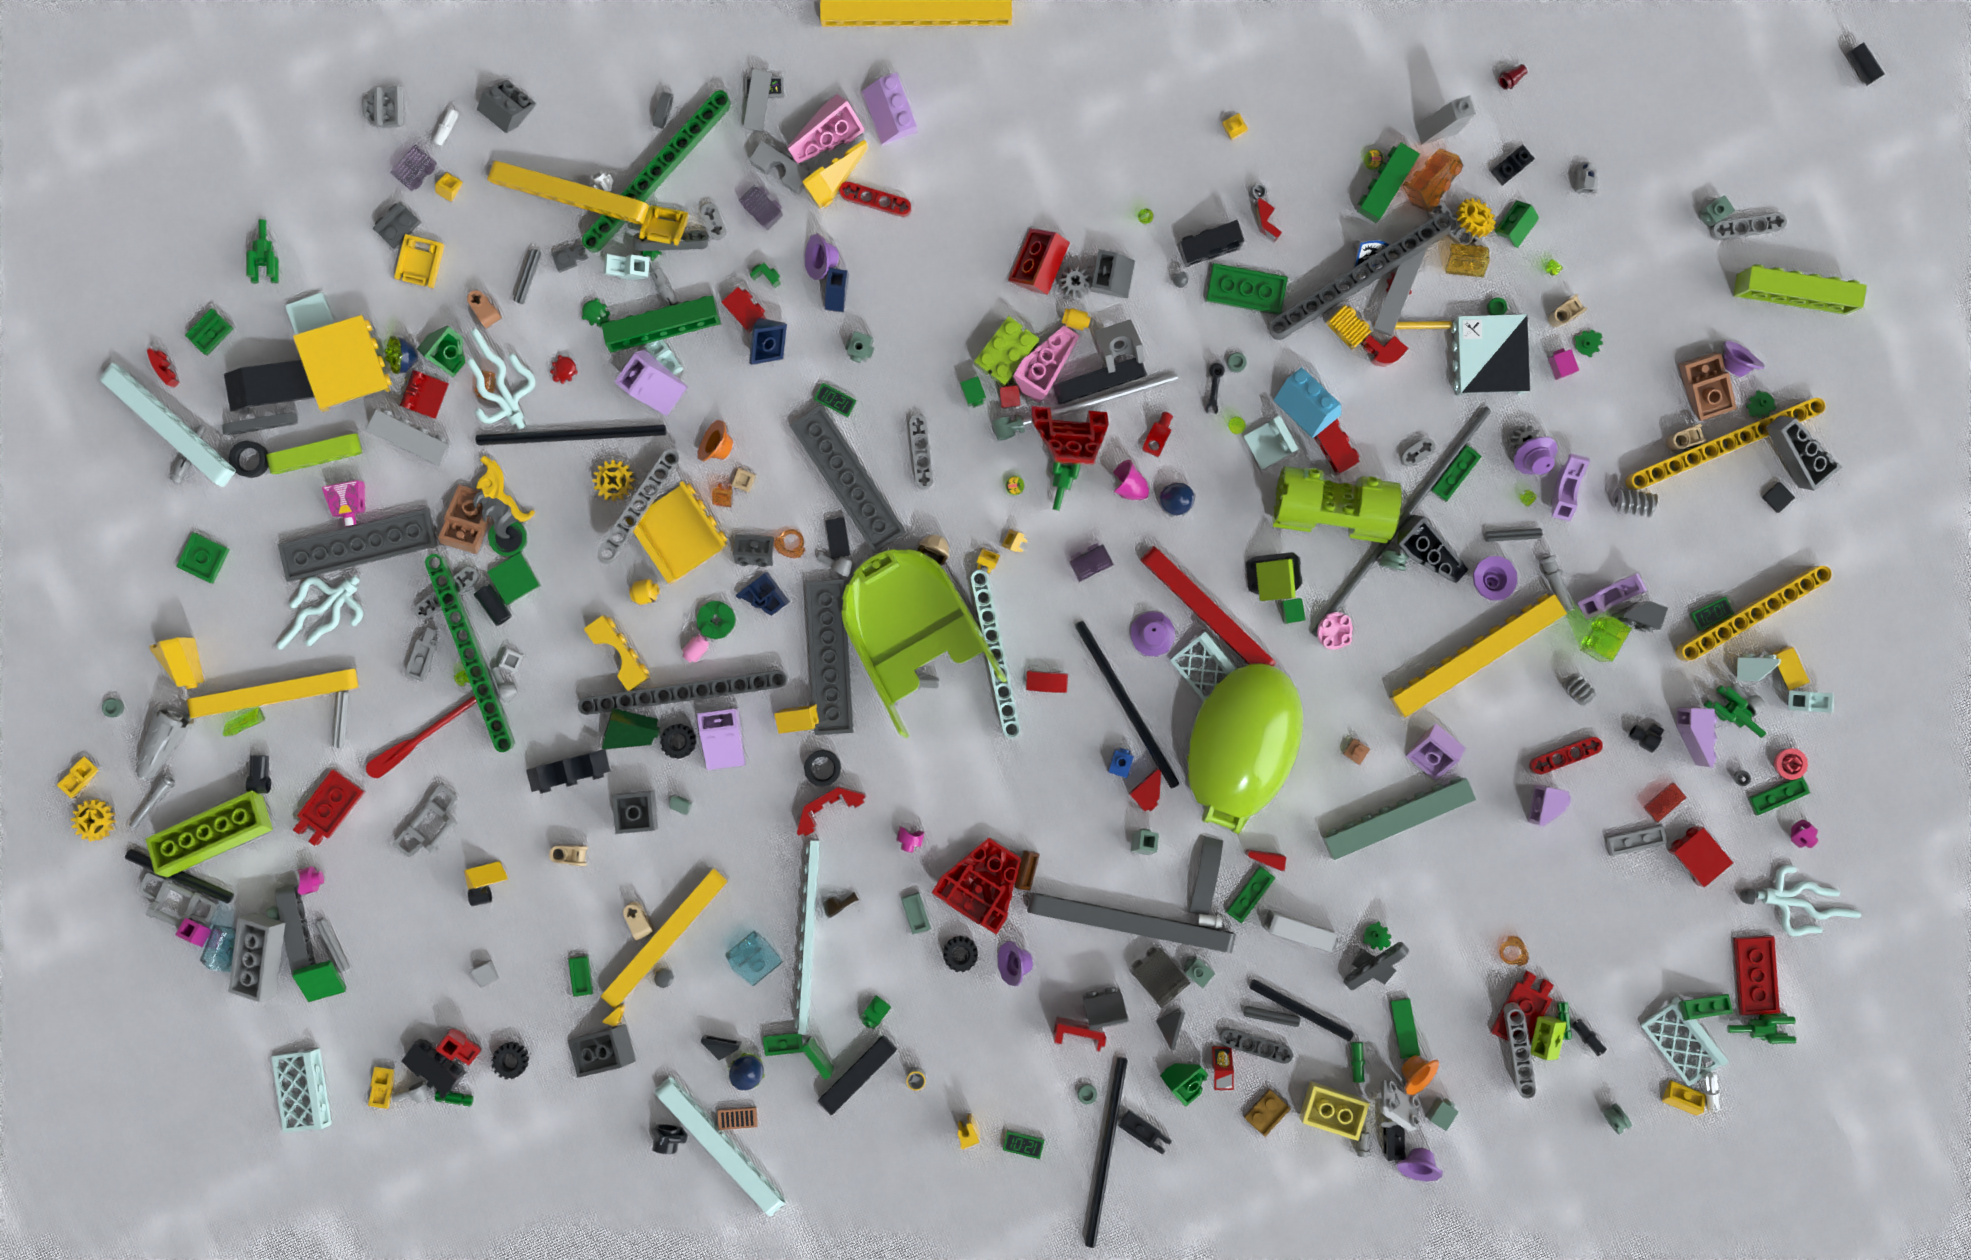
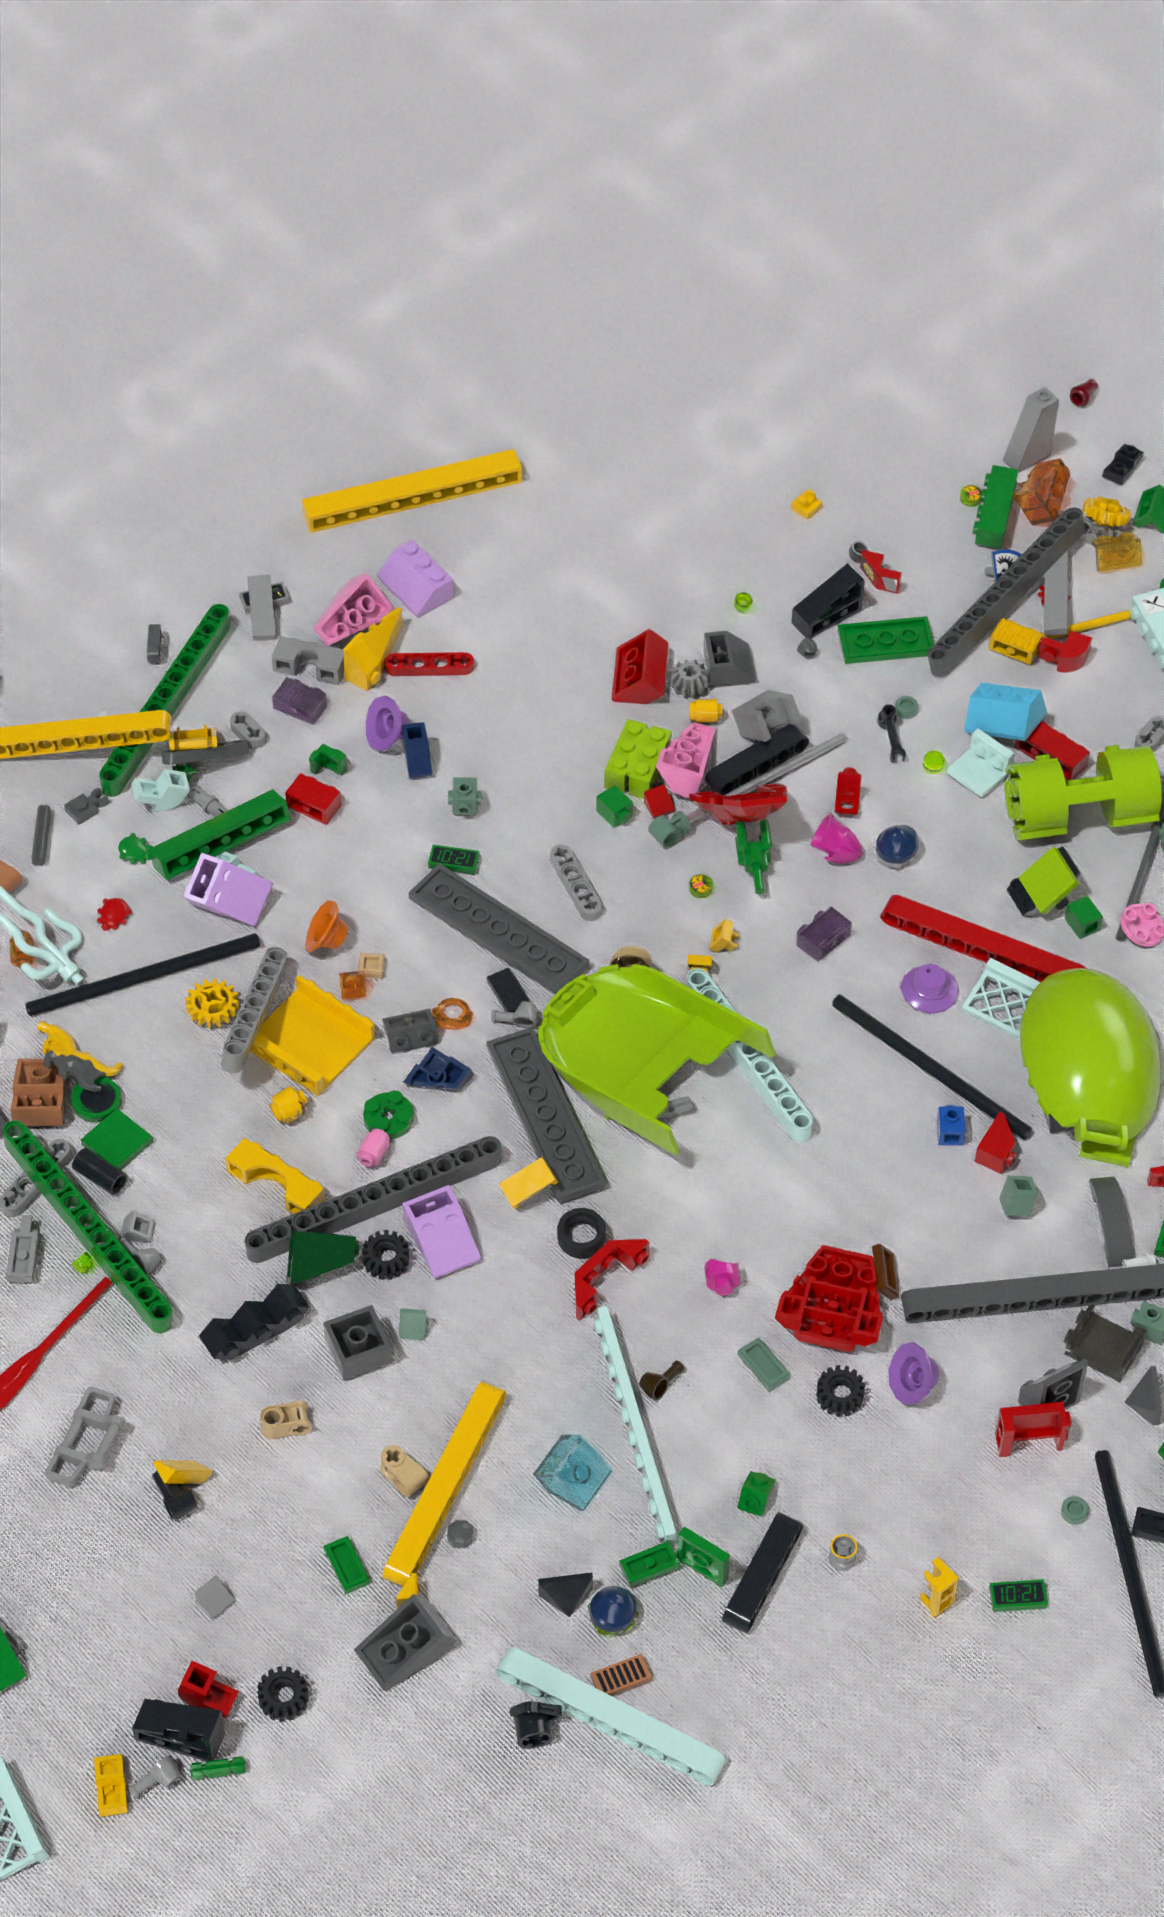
camera: 15 degrees left, 35 degrees down
(767, 341) = (355, 815): dark blue slope -> none
(1047, 681) = (822, 1065): red slope -> none

